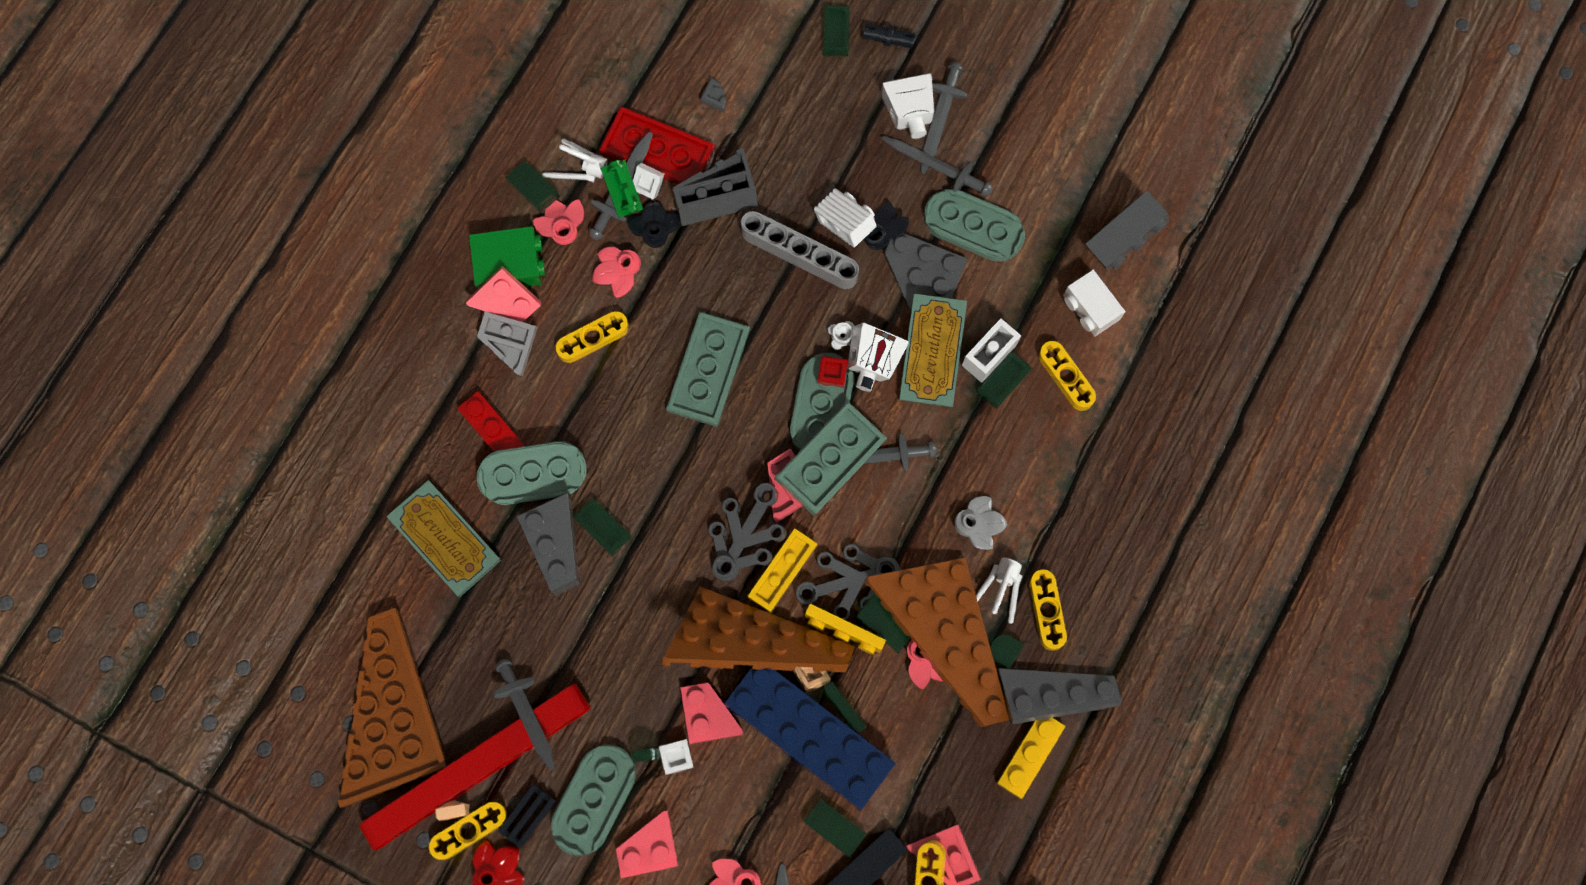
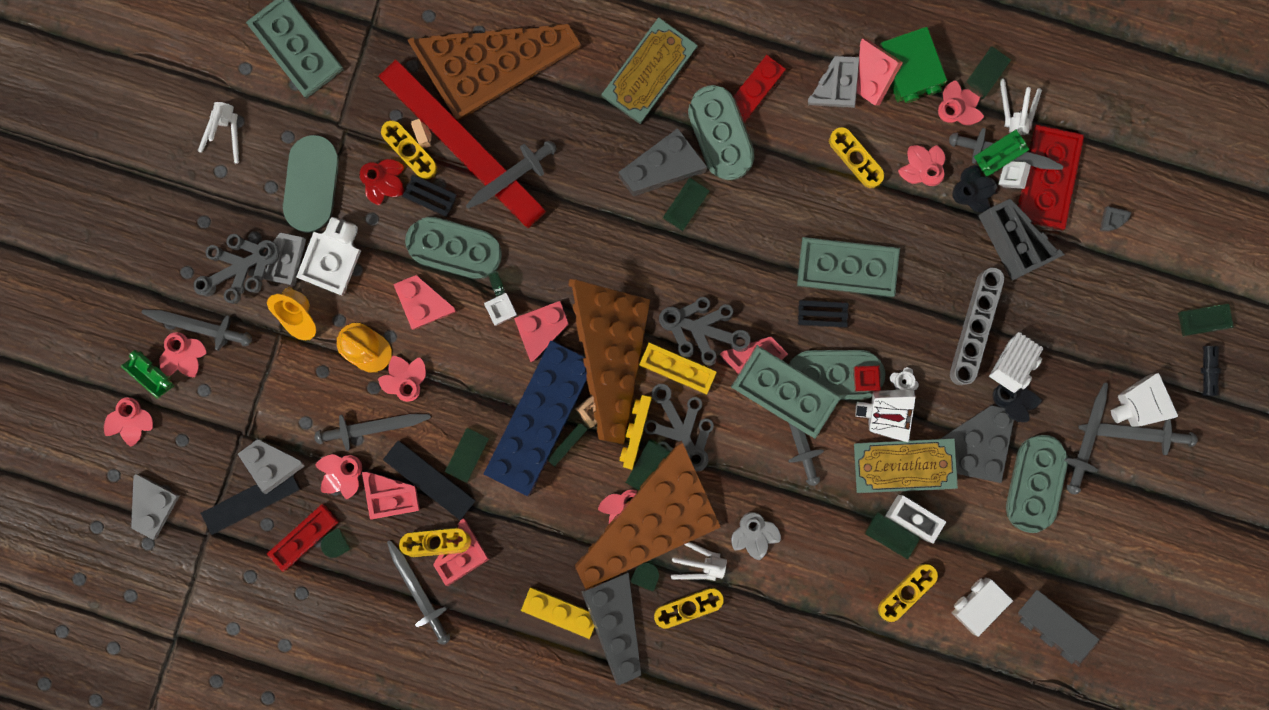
camera: 85 degrees right, 10 degrees up
(758, 383) = (844, 315): none -> black tile

